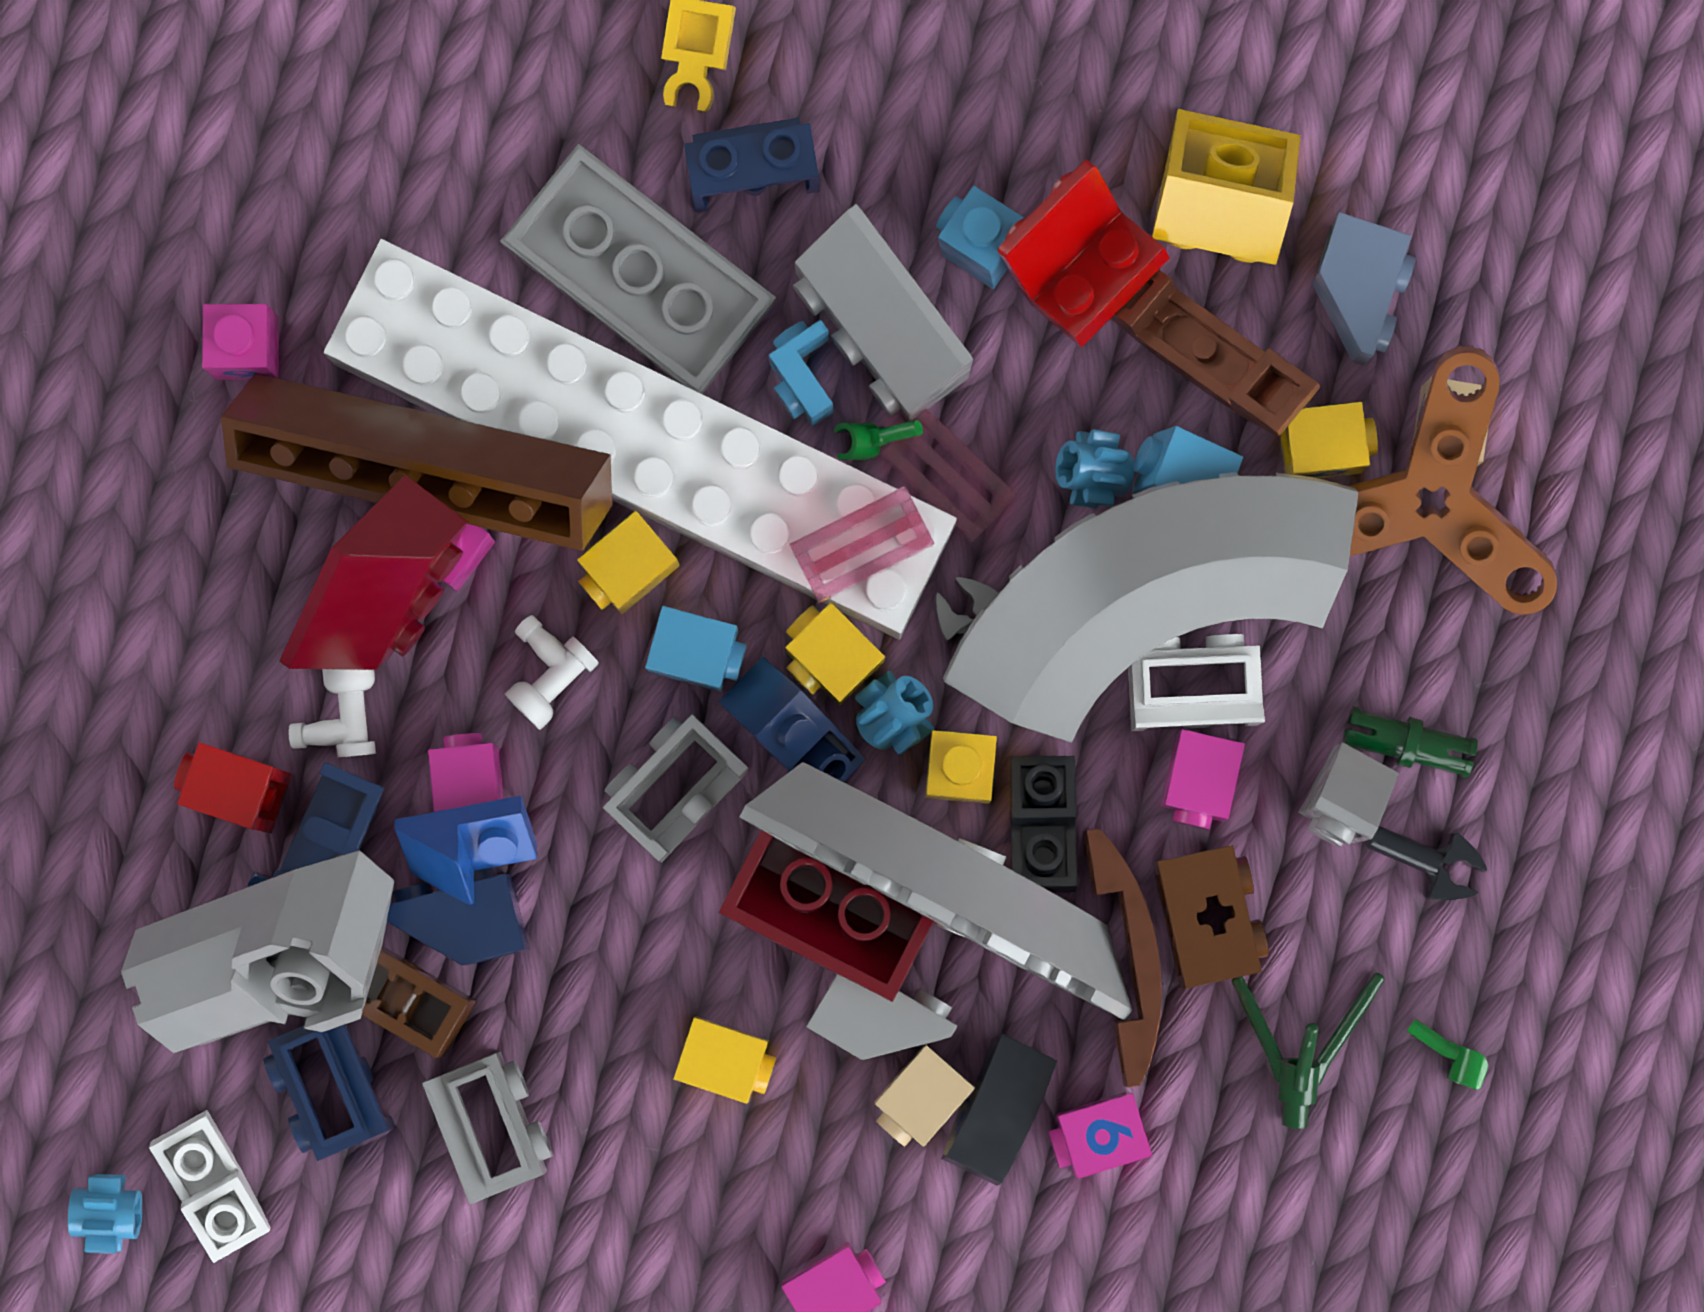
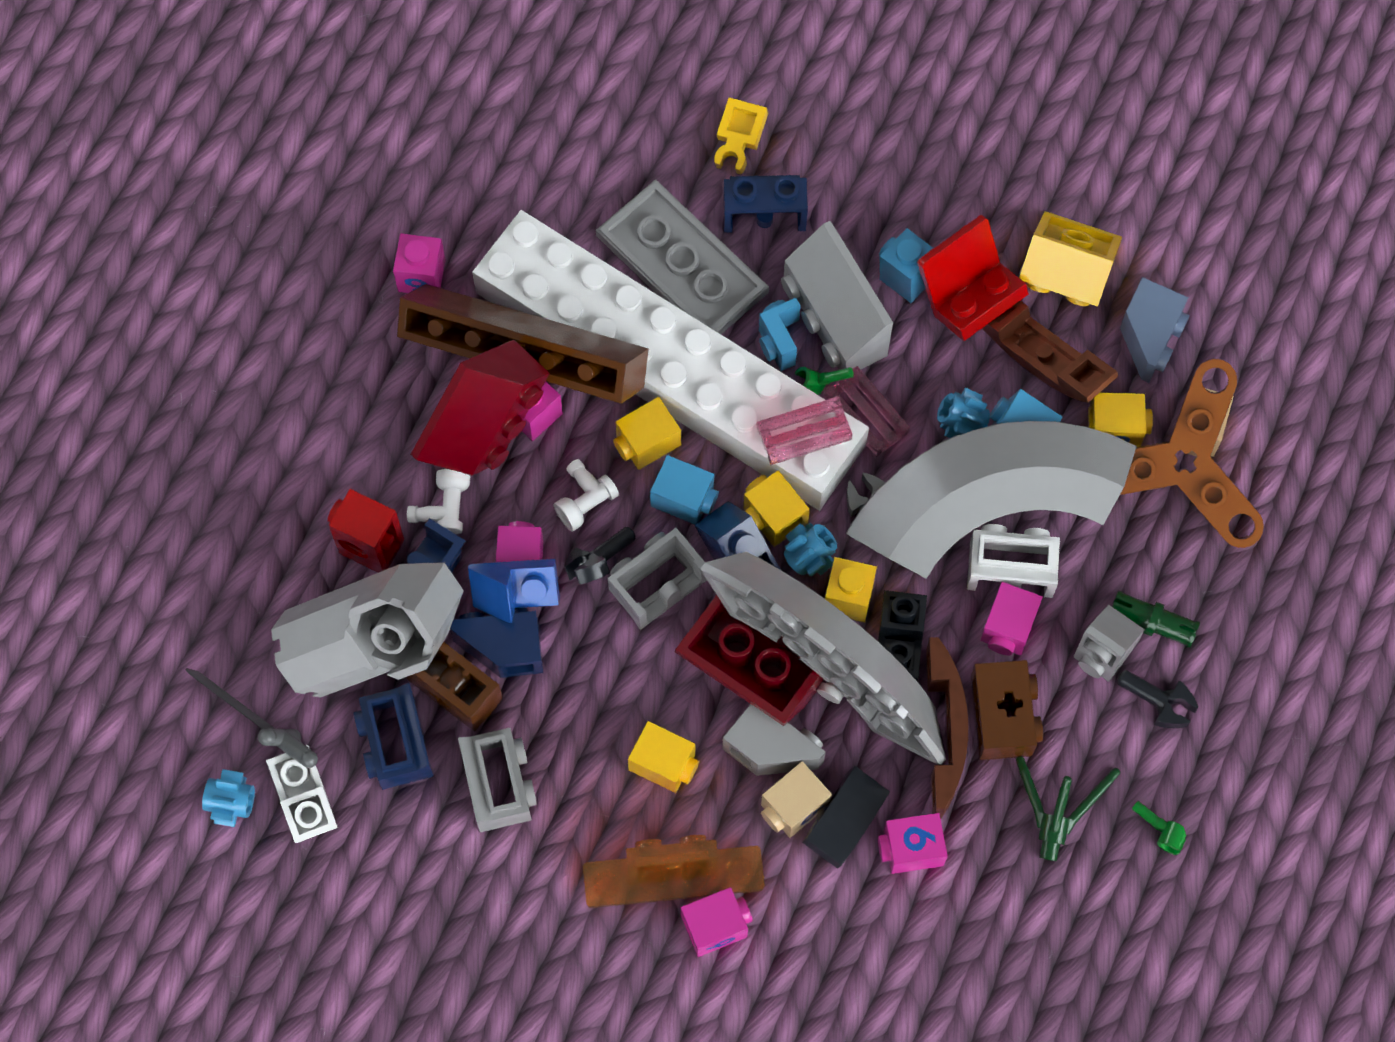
camera: 10 degrees right, 15 degrees down
(156, 1114) = (285, 739): none -> dark grey sword
(572, 782) = (592, 565): none -> black bar
(764, 1229) = (672, 872): none -> clear orange bracket

